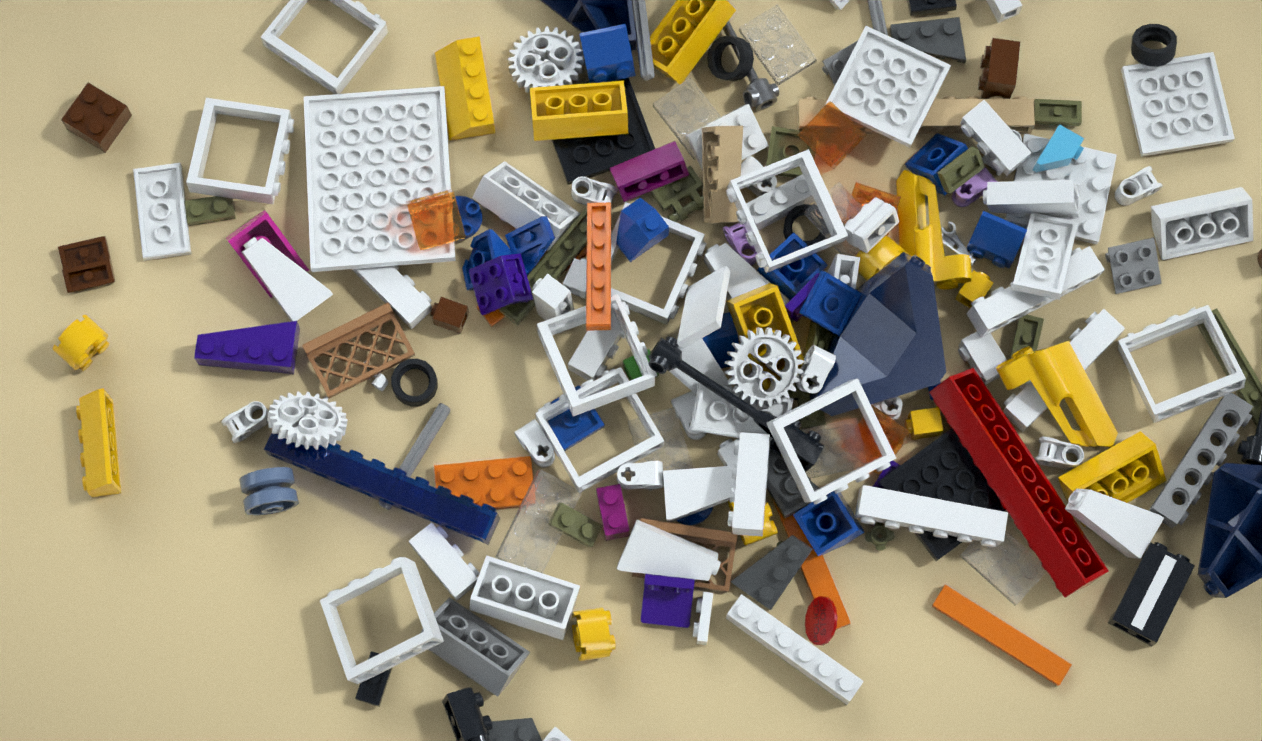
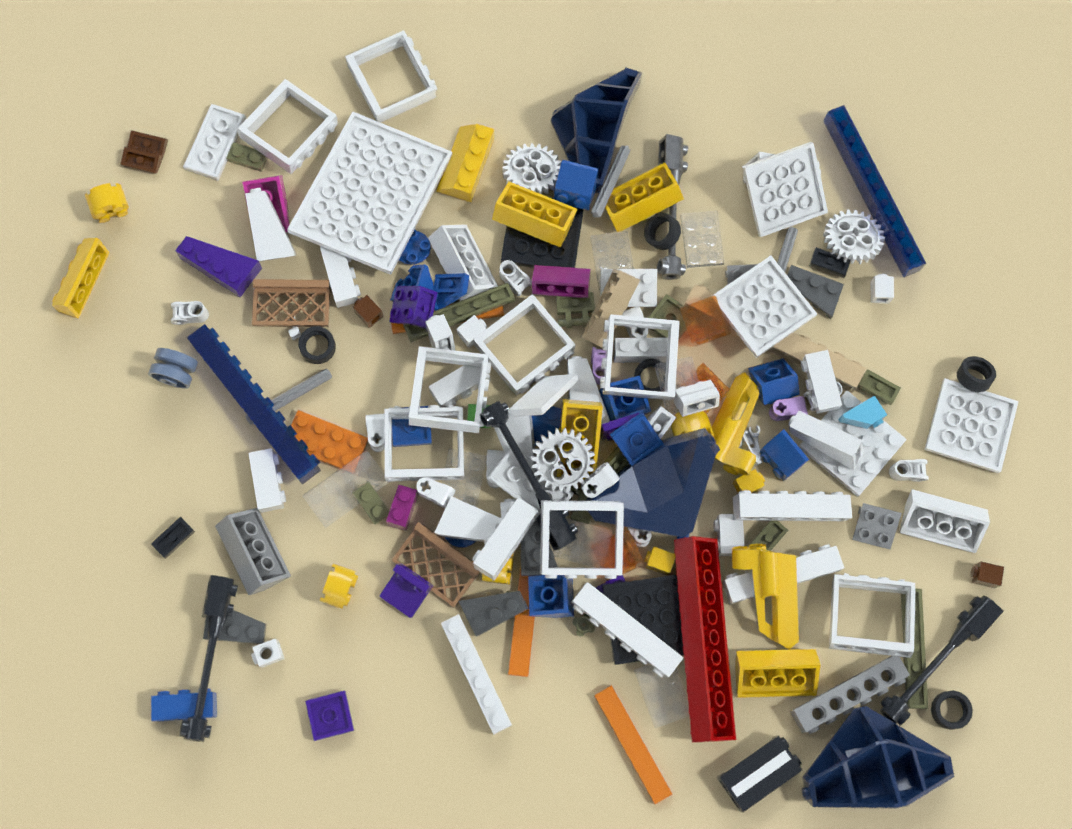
camera: 25 degrees right, 0 degrees up
(96, 117) = (206, 56): reddish brown brick -> none
(307, 420) = (226, 332): white gear -> none
(398, 653) = (190, 528): white window -> none
(436, 219) = (390, 238): clear orange bracket -> none
(524, 597) = (306, 535): white slope -> none
(598, 267) = (485, 329): orange tile -> none
(640, 229) = (530, 318): blue slope -> none
(665, 554) = (421, 557): white slope -> none
(704, 608) = (419, 624): white plate -> none
(821, 620) = (506, 664): red piece -> none
(961, 169) = (784, 392): olive plate -> none
(999, 68) = (852, 334): reddish brown brick -> none
(1045, 256) = (812, 485): white plate -> none
(1057, 453) = (745, 633): white piece -> none
(1115, 521) = (761, 707): white slope -> none

